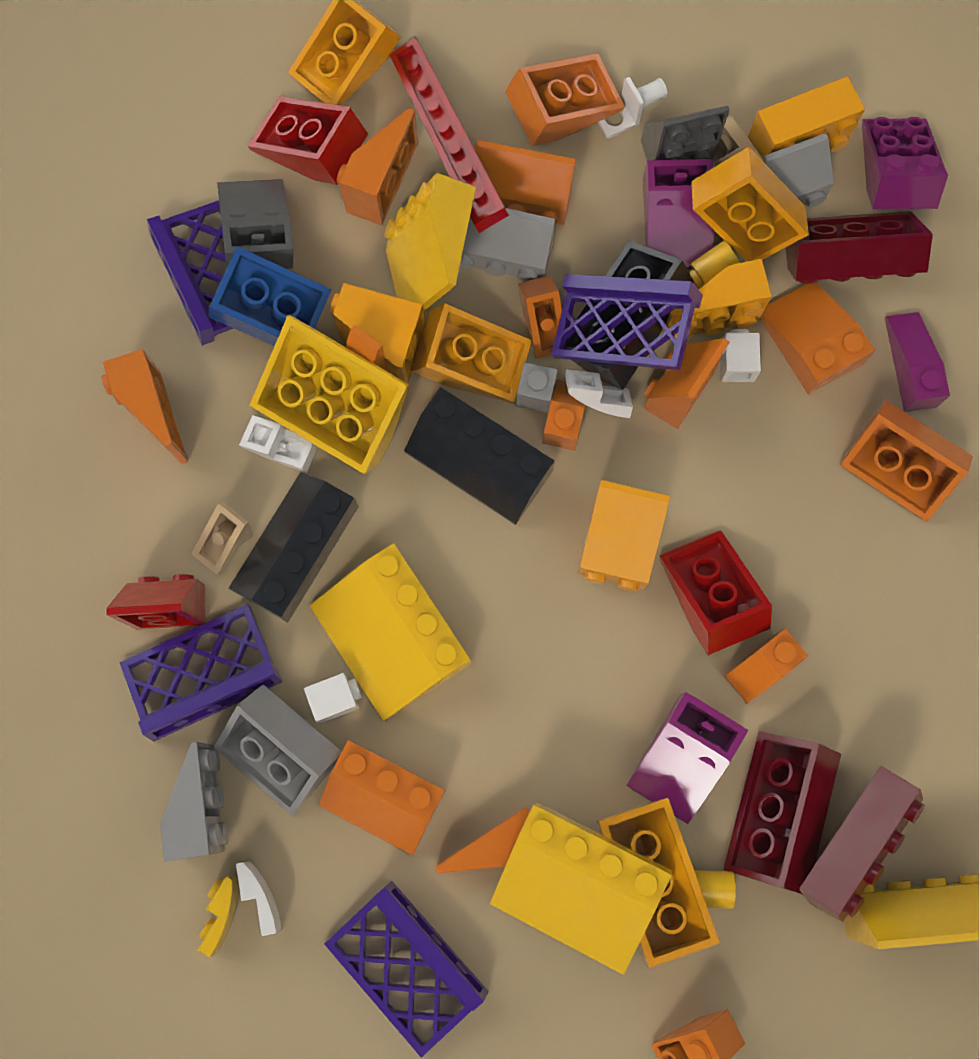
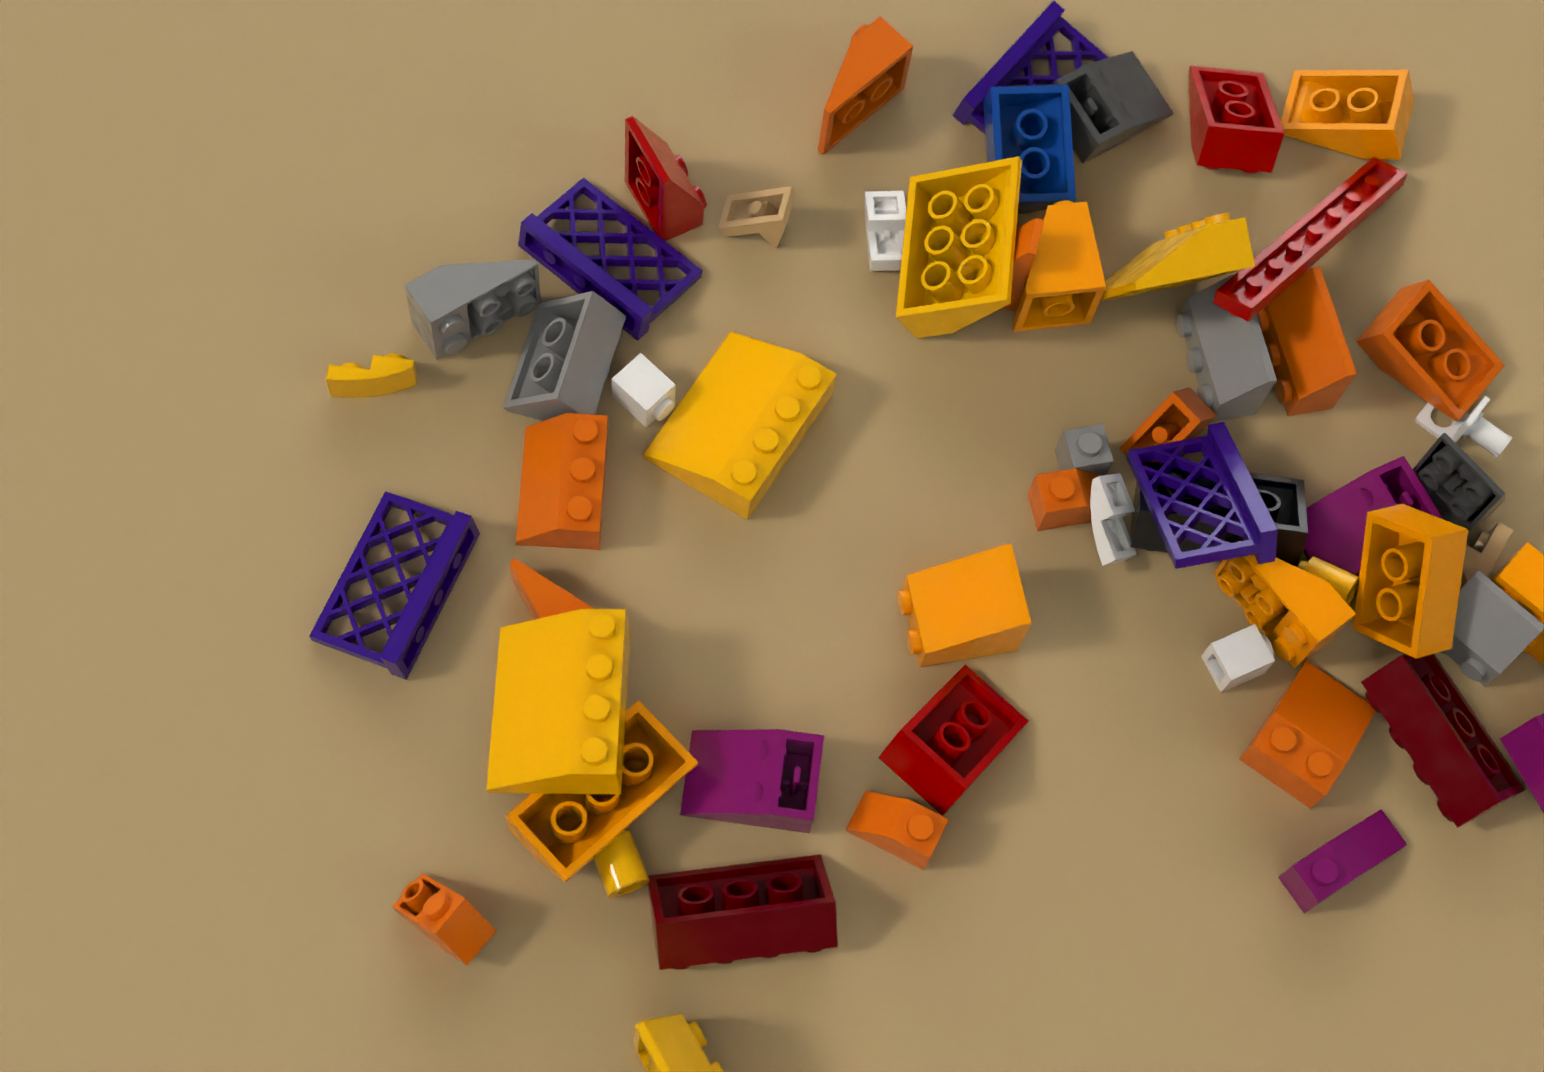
camera: 55 degrees right, 10 degrees down
(254, 887) = (414, 397): white slope -> none
(294, 546) = (785, 292): black slope -> none
(378, 168) = (1244, 188): orange slope -> none
(470, 354) = (1085, 373): light orange slope -> none
(478, 456) = (977, 429): black slope -> none
(679, 389) = (1173, 606): orange slope -> none
(862, 844) = (745, 992): slope -> none
(907, 461) = (1219, 894): orange slope -> none

